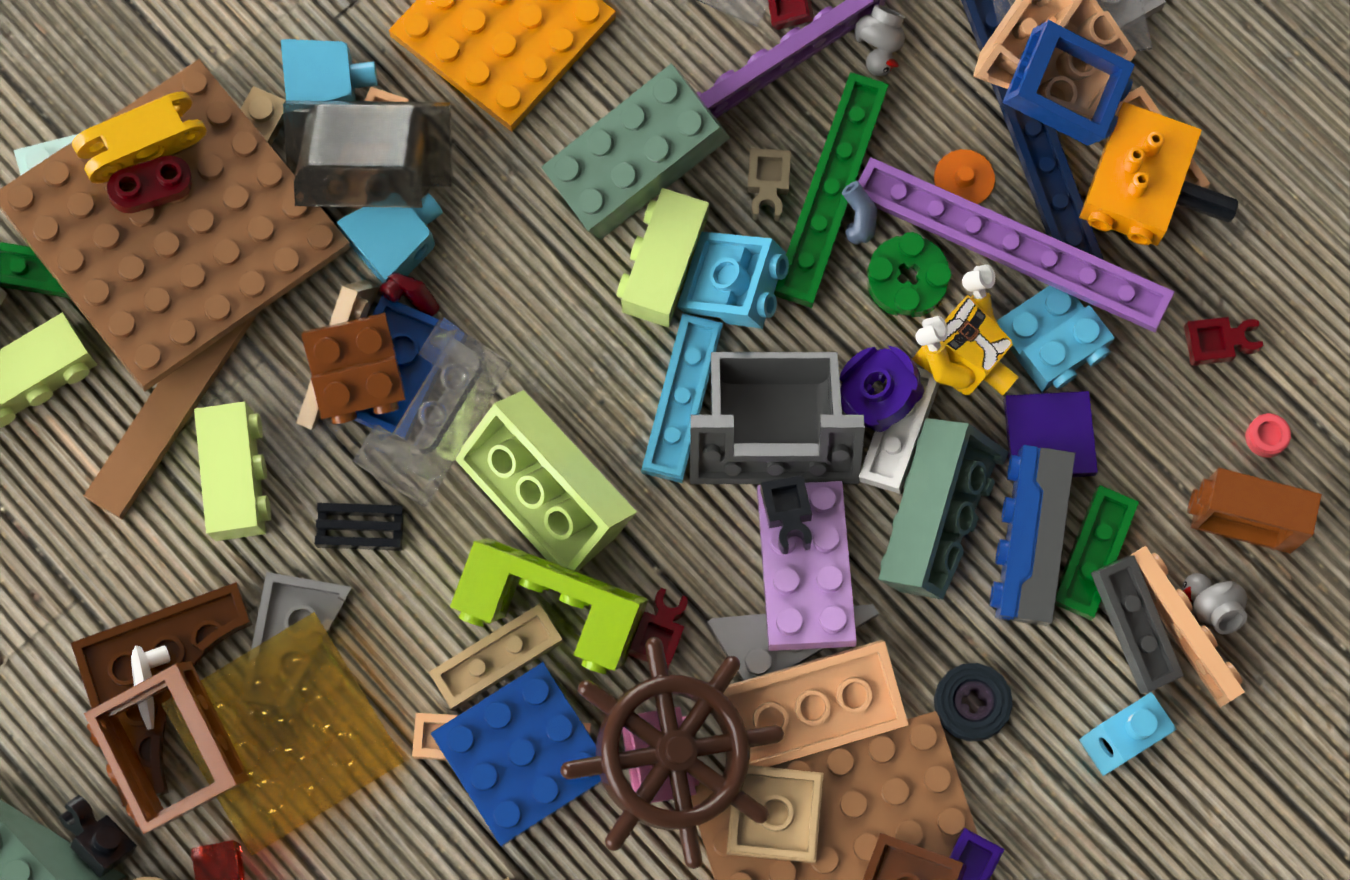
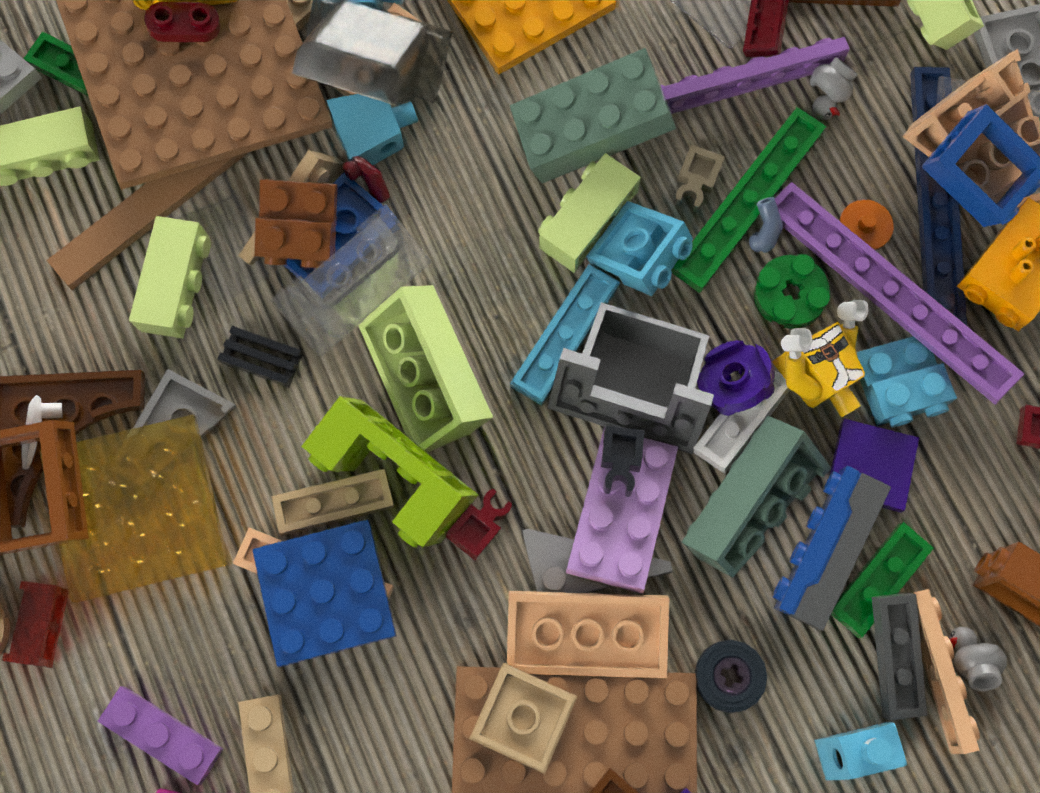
camera: 20 degrees right, 0 degrees up
(664, 753) = (444, 636): reddish brown brick -> none

